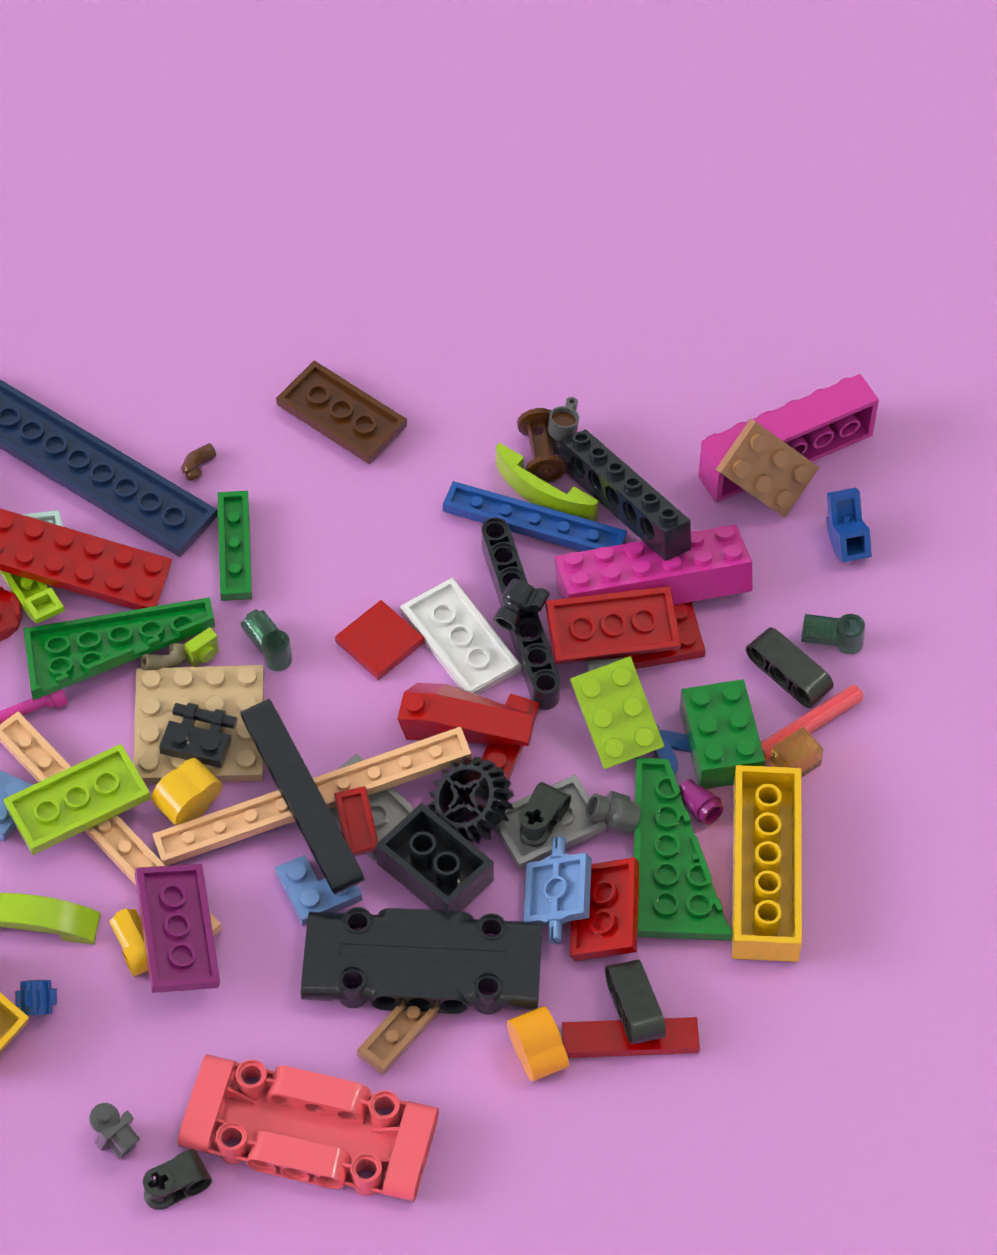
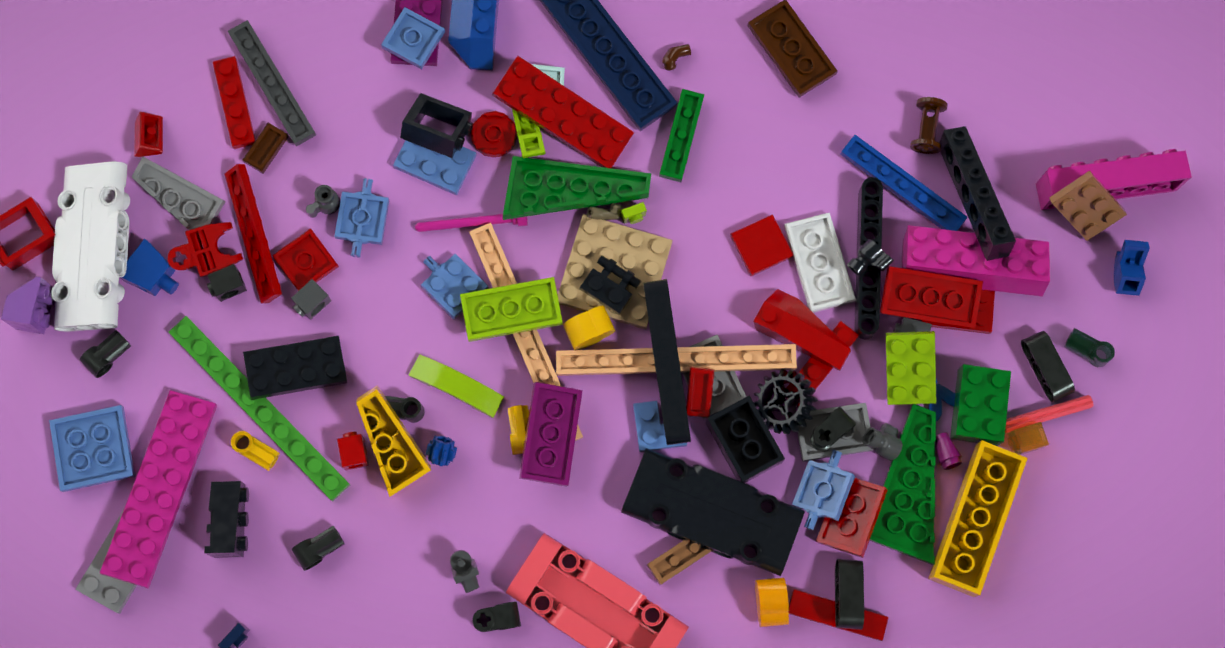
camera: 15 degrees right, 20 degrees up
(268, 640) = (681, 220): piece -> none
(540, 492) = (937, 183): lime slope -> none
(563, 423) = (951, 115): dark grey piece -> none

